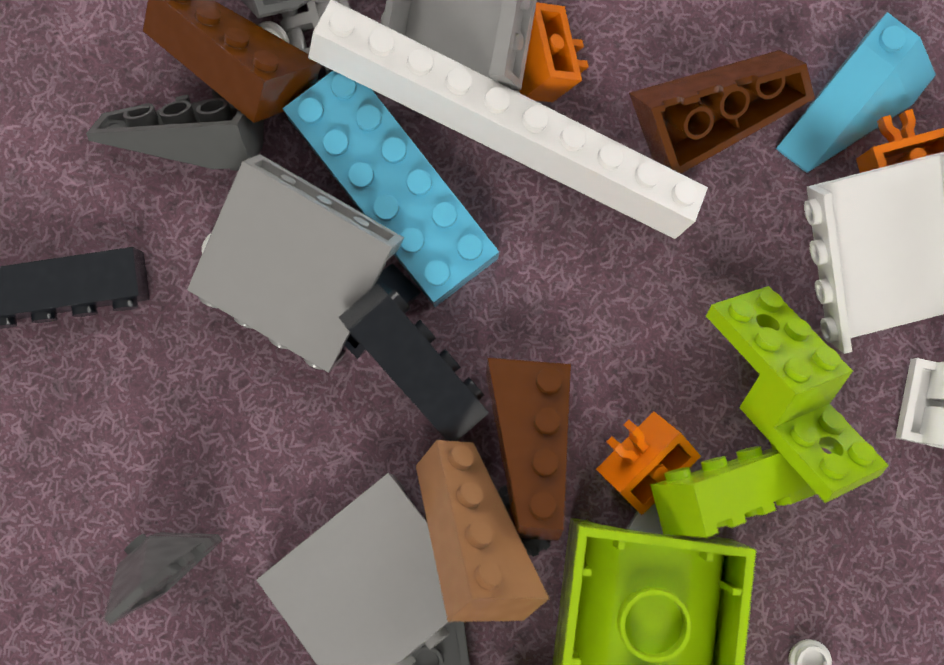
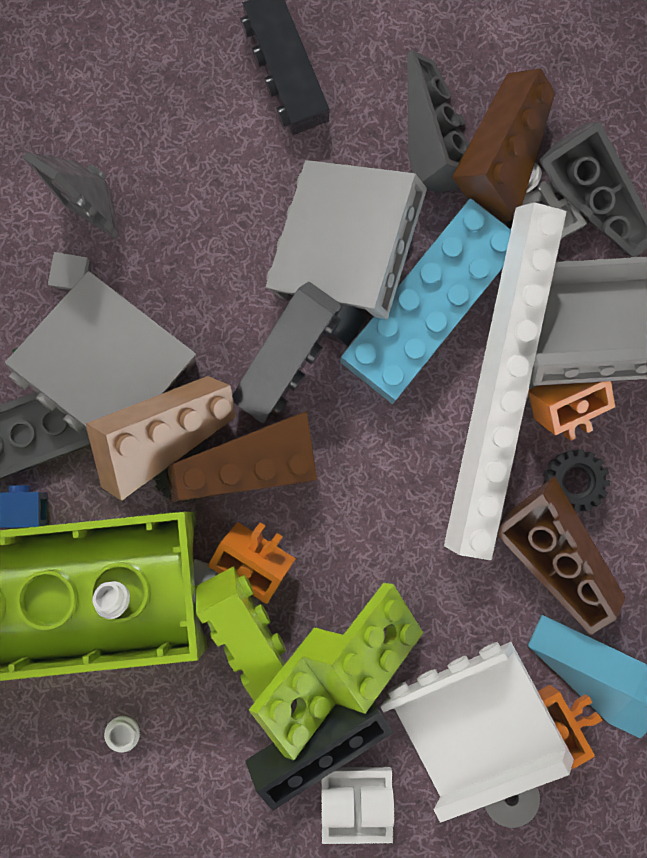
camera: 75 degrees right, 0 degrees up
(247, 606) = (67, 270): none -> light grey tile
(630, 49) = (595, 473): none -> black tyre
(664, 636) = (111, 599): none -> white plate
(875, 413) = (342, 726): none -> black brick

